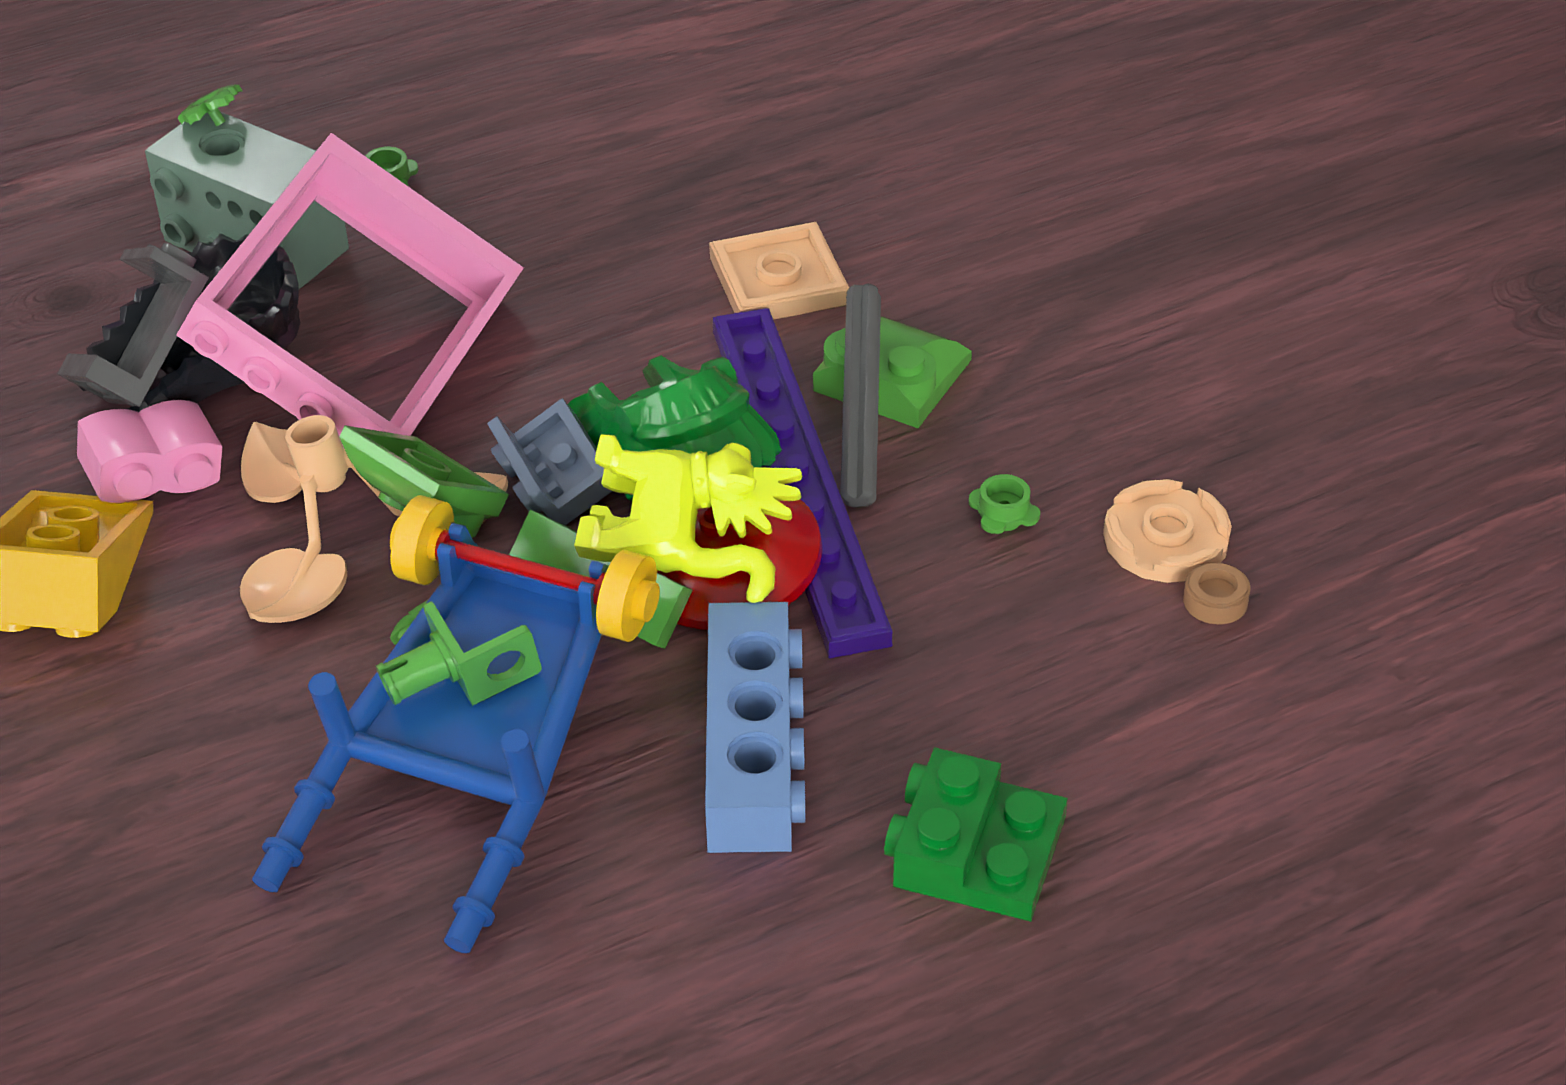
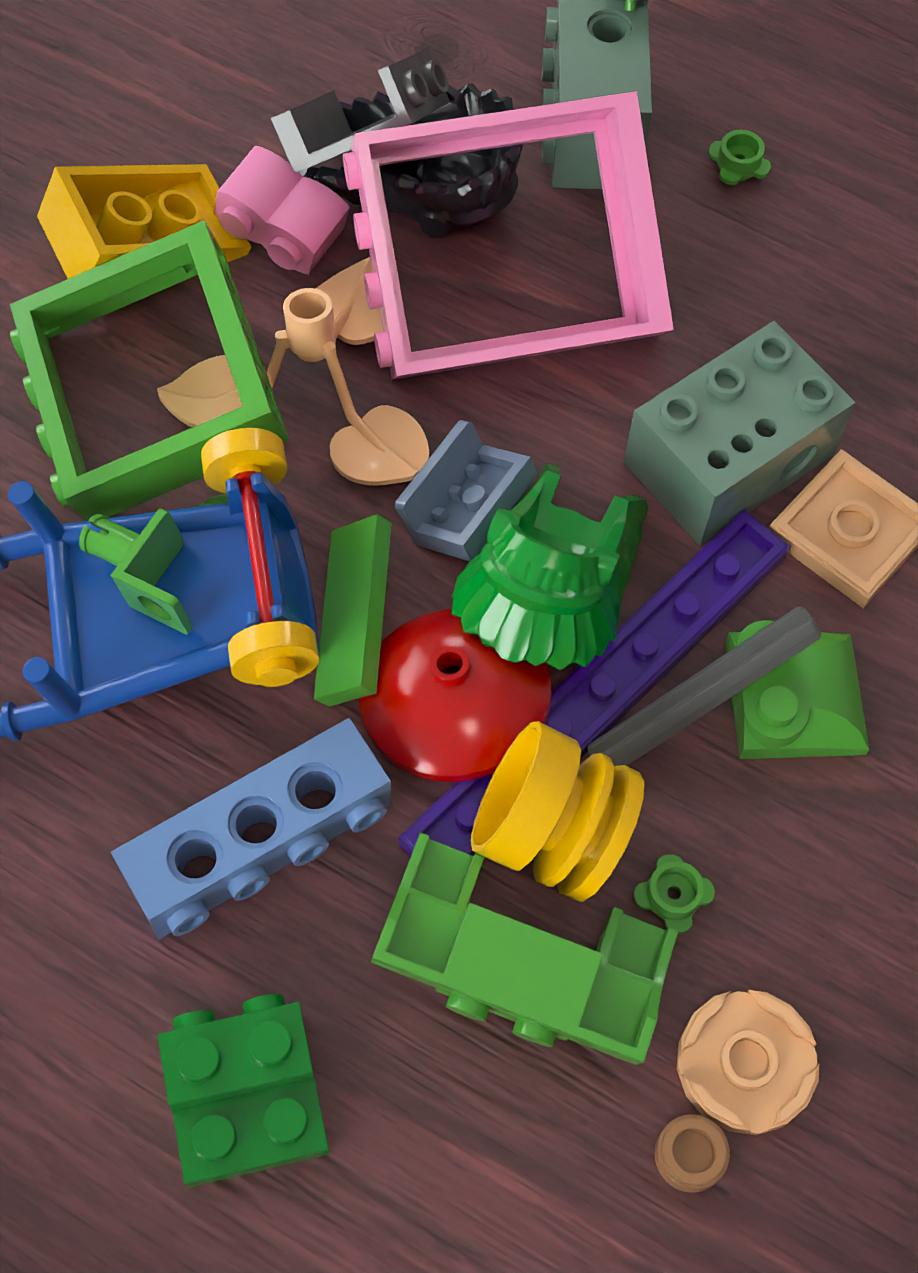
camera: 55 degrees right, 20 degrees up
(245, 508) = (107, 289): none -> bright green window
(410, 467) = (340, 414): bright green slope -> none
(651, 277) = (737, 431): none -> sand green piece
(665, 505) = (401, 623): neon yellow animal -> none
(899, 507) = (558, 812): none -> yellow wheel
(999, 605) = (519, 971): none -> bright green bracket

